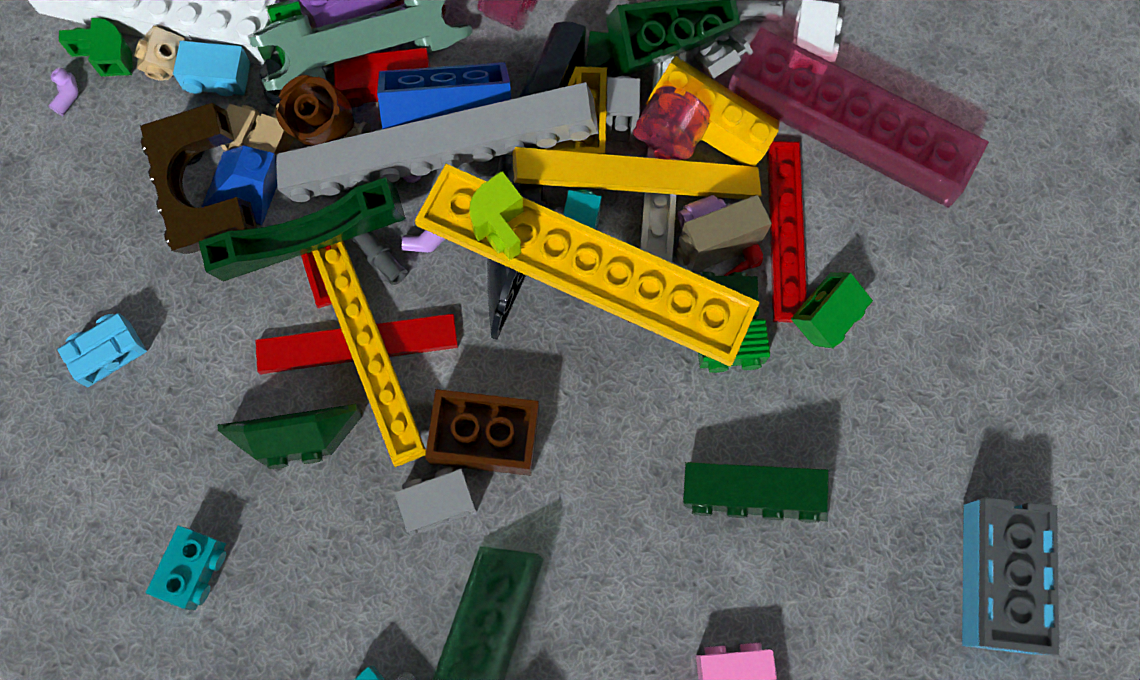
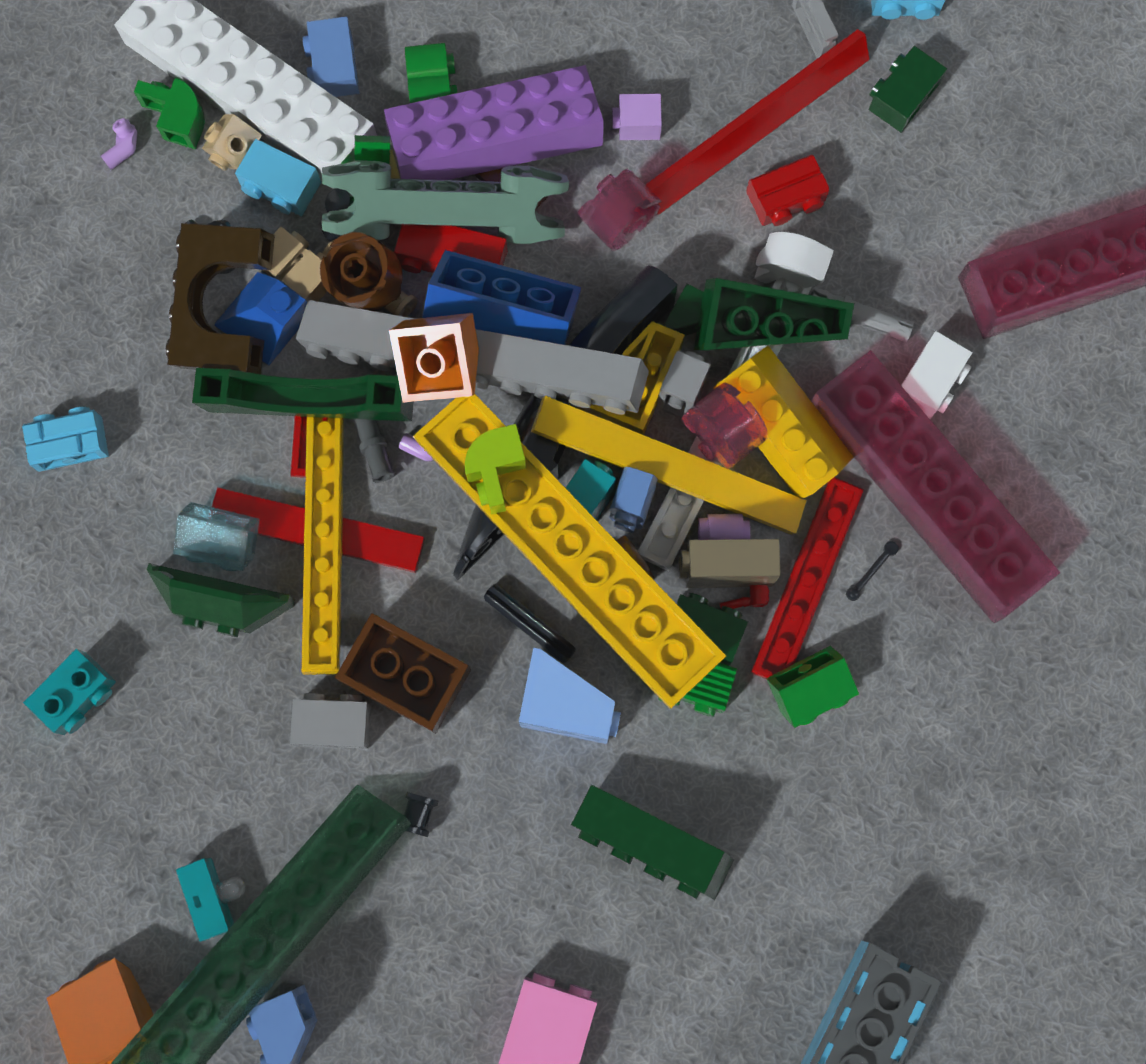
camera: 25 degrees right, 5 degrees up
(270, 380) = (216, 536): none -> clear light blue brick
(408, 149) = (436, 357): none -> orange slope
(545, 545) = (418, 813): none -> black bush
(573, 351) = (529, 623): none -> black axle
(619, 210) = (632, 499): none -> medium blue brick
(635, 400) = (565, 703): none -> light blue slope
(719, 56) = (816, 363): light grey plate -> none
(840, 181) = (890, 549): none -> black hinge

